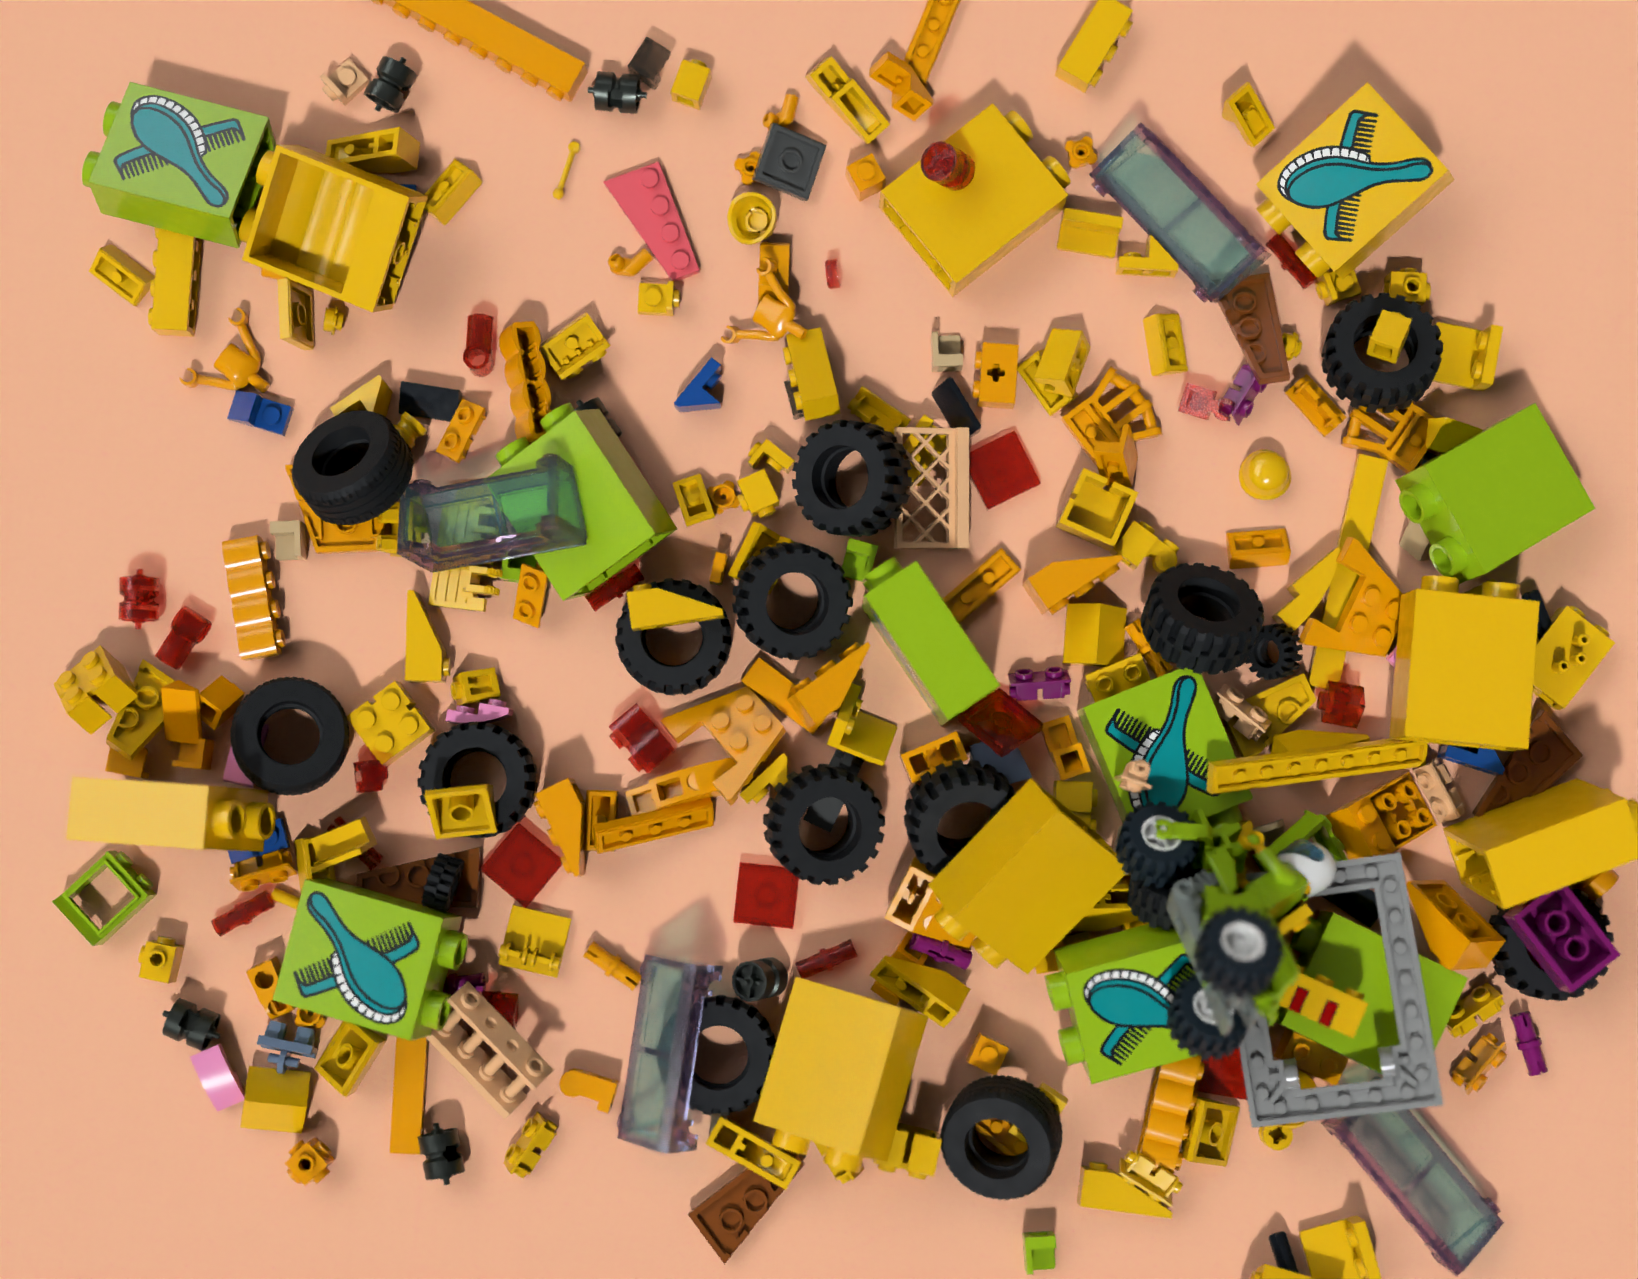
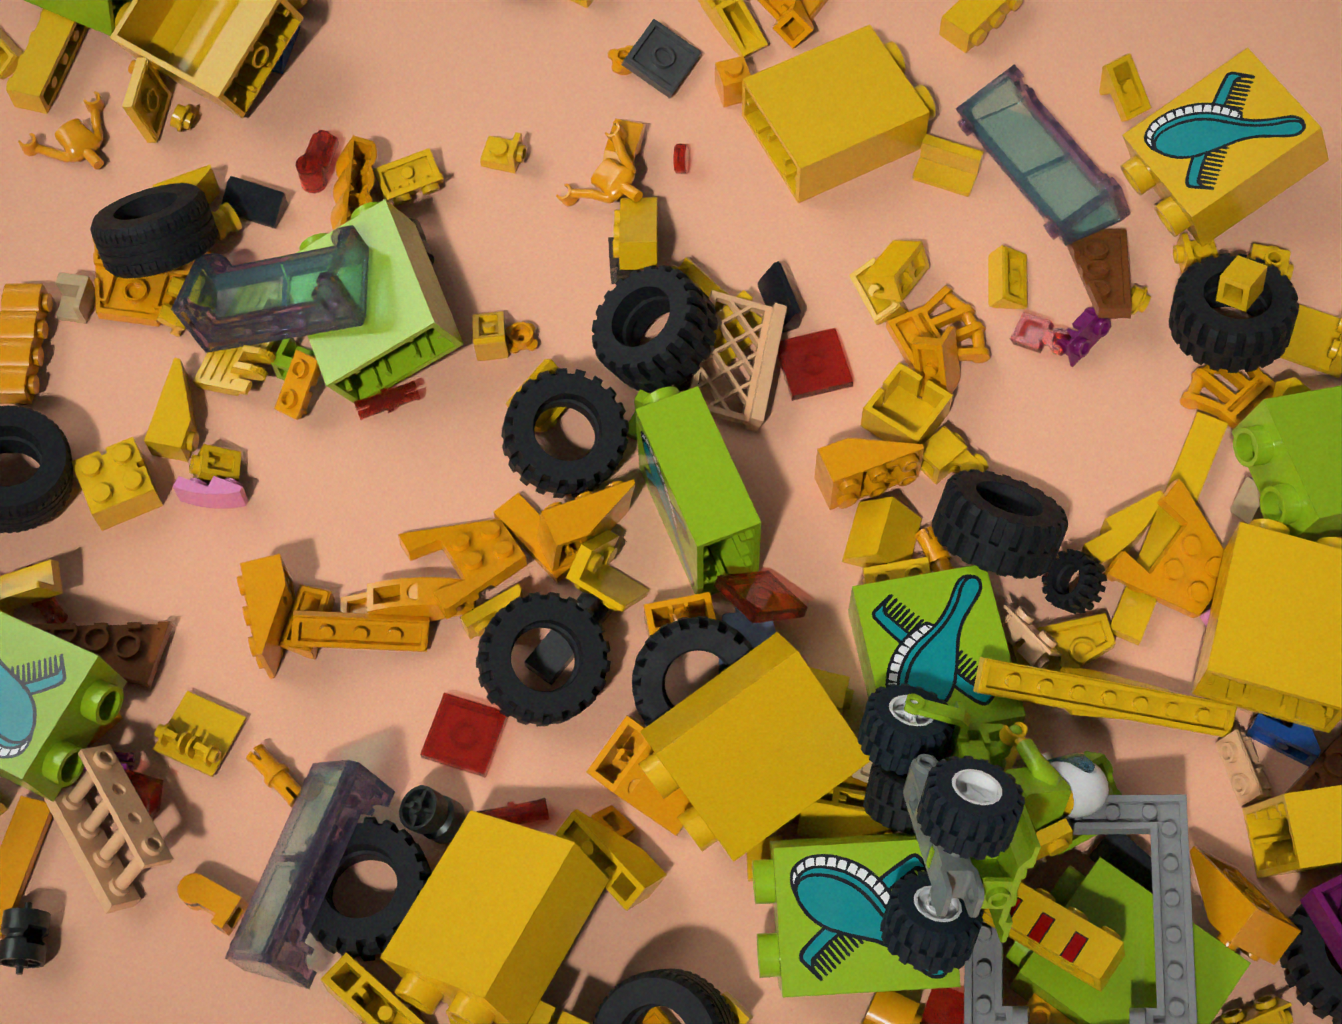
camera: 15 degrees right, 20 degrees down
(260, 412) = (86, 186): blue slope -> none
(369, 776) = (78, 527): clear red piece -> none
(442, 882) = (117, 637): black tyre -> none
(451, 191) = (330, 34): yellow slope -> none
(462, 811) = (157, 559): yellow slope -> none
(463, 425) = (285, 222): light orange hinge -> none
(496, 741) = (169, 519): black tyre -> none
(520, 1156) = (115, 963): yellow hinge -> none
(522, 865) = (210, 653): clear red tile -> none
(574, 148) = (458, 18): yellow hinge -> none
(628, 266) = (482, 122): light orange arm -> none
(641, 739) = (373, 548): clear red brick -> none
(651, 210) = (519, 84): coral wing -> none
(660, 608) = (424, 406): yellow slope -> none
(676, 678) = (424, 416): black tyre -> none
(694, 396) = (518, 238): blue slope -> none
(718, 569) = (496, 400): light orange tile -> none
(751, 218) = (613, 95): yellow helmet -> none
(757, 494) = (555, 335): yellow brick -> none
(776, 457) = (578, 303): yellow bracket -> none
(786, 115) = (671, 18): light orange arm -> none
(941, 950) = (643, 827): magenta pin -> none
(946, 353) = (779, 247): tan panel -> none
(947, 166) = (812, 57): clear red wheel -> none
(981, 585) = (775, 465): light orange tile -> none
(987, 1054) = (670, 950): light orange brick -> none
(1004, 360) = (827, 273): light orange brick -> none
(1053, 682) = (825, 574): magenta hinge -> none
(1064, 748) = (826, 639): light orange slope -> none
(1077, 160) = (949, 104): light orange plate -> none
(1134, 776) = (890, 655): light nougat hinge -> none
(1155, 263) = (1007, 204): yellow slope -> none
(1258, 548) = (1075, 486): light orange slope -> none
(1265, 475) = (1093, 414): yellow helmet -> none
(1291, 261) = (1151, 224): clear red pin -> none
(1315, 405) = (1156, 359): light orange hinge -> none
(1341, 704) = (1142, 650): clear red brick -> none
(1382, 819) = (1177, 770): light orange slope -> none

